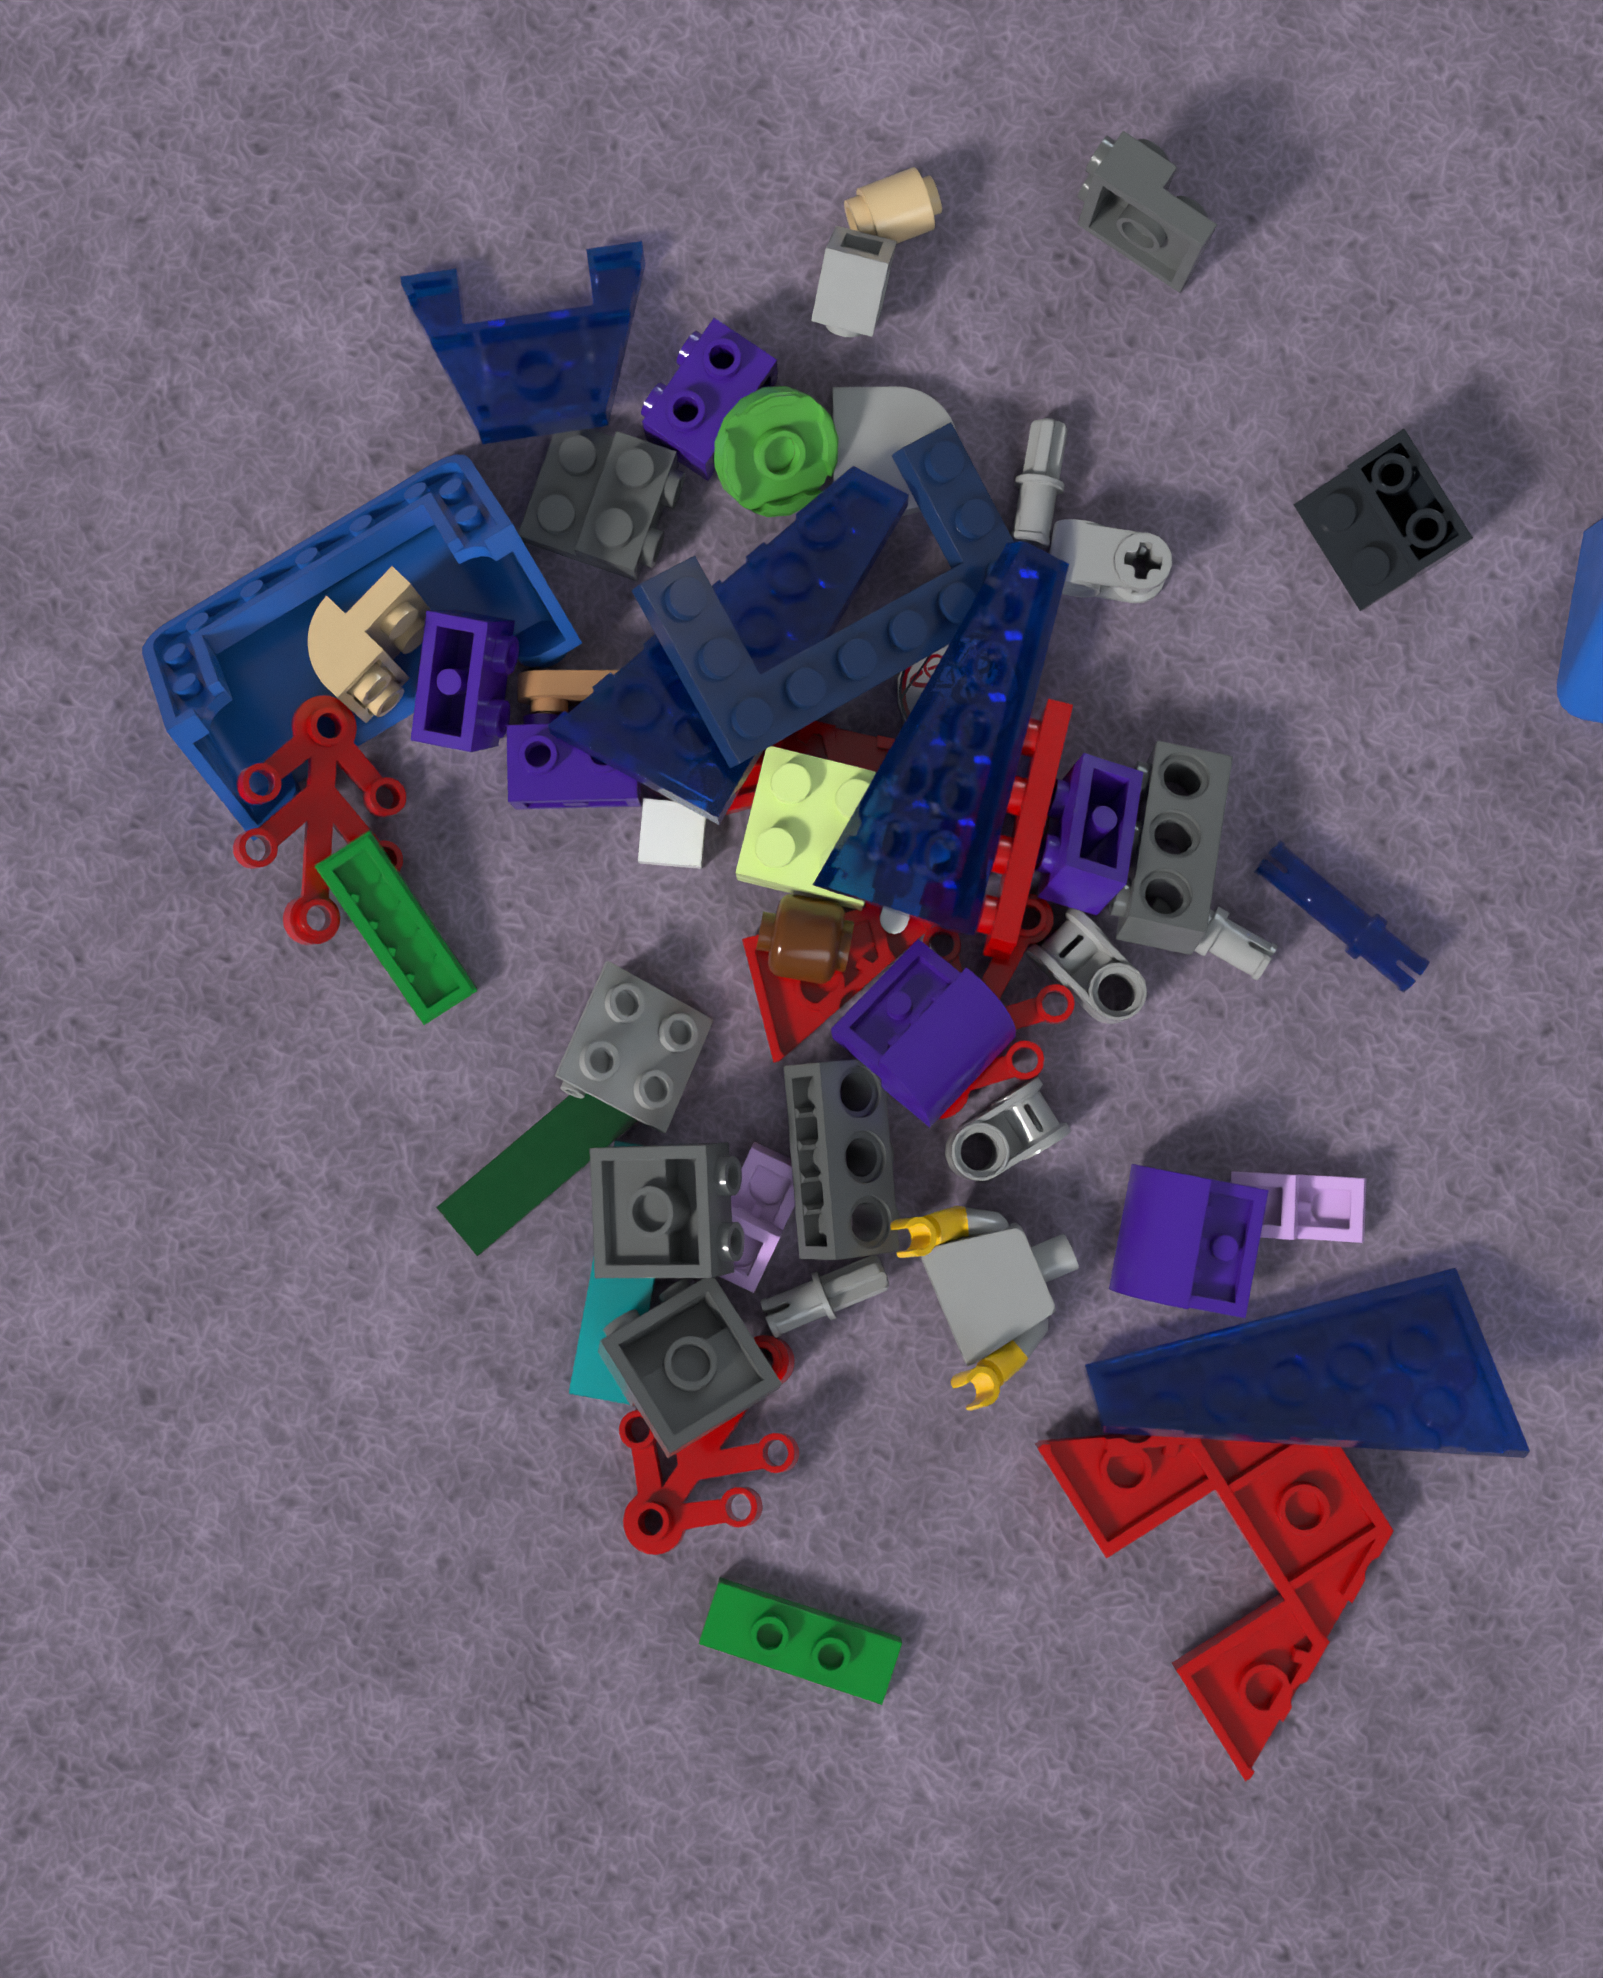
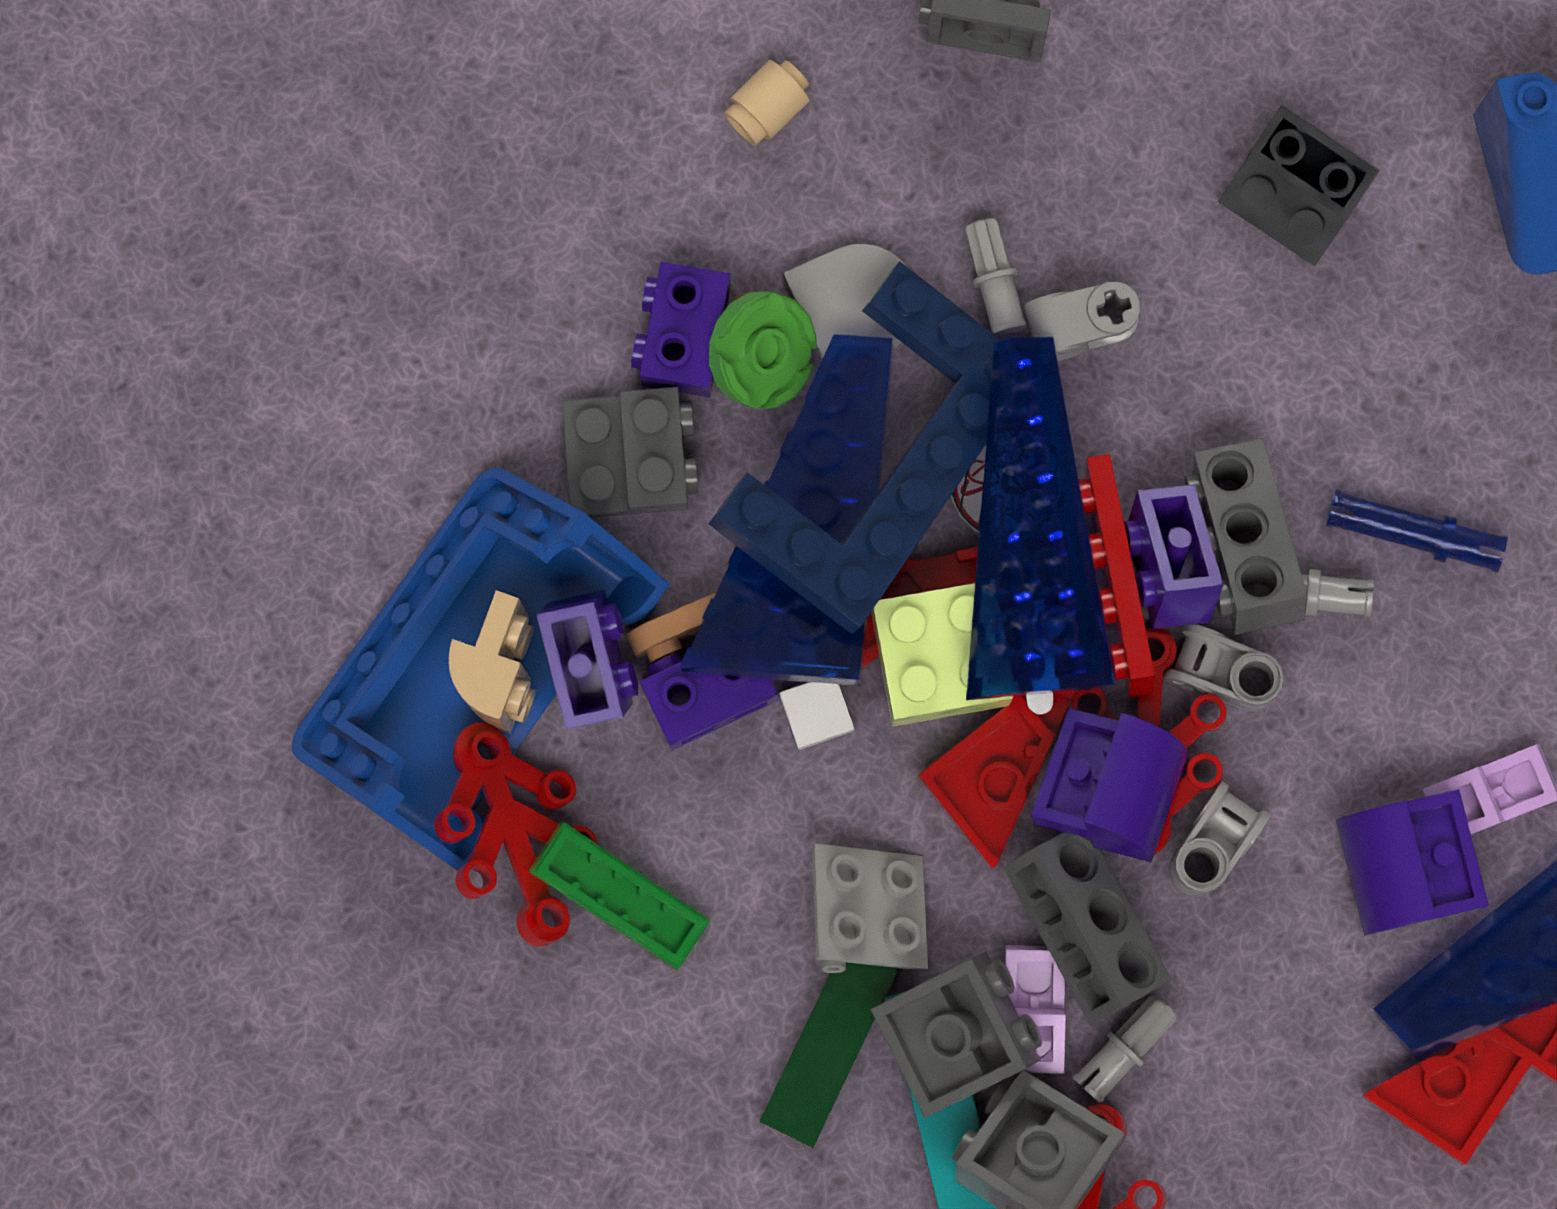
camera: 20 degrees left, 5 degrees down
(539, 368) = (525, 369): clear blue wing -> none
(806, 938) = (975, 749): reddish brown head -> none
(853, 282) = (763, 178): light grey brick -> none
(988, 1289) = (1261, 978): light grey torso -> none

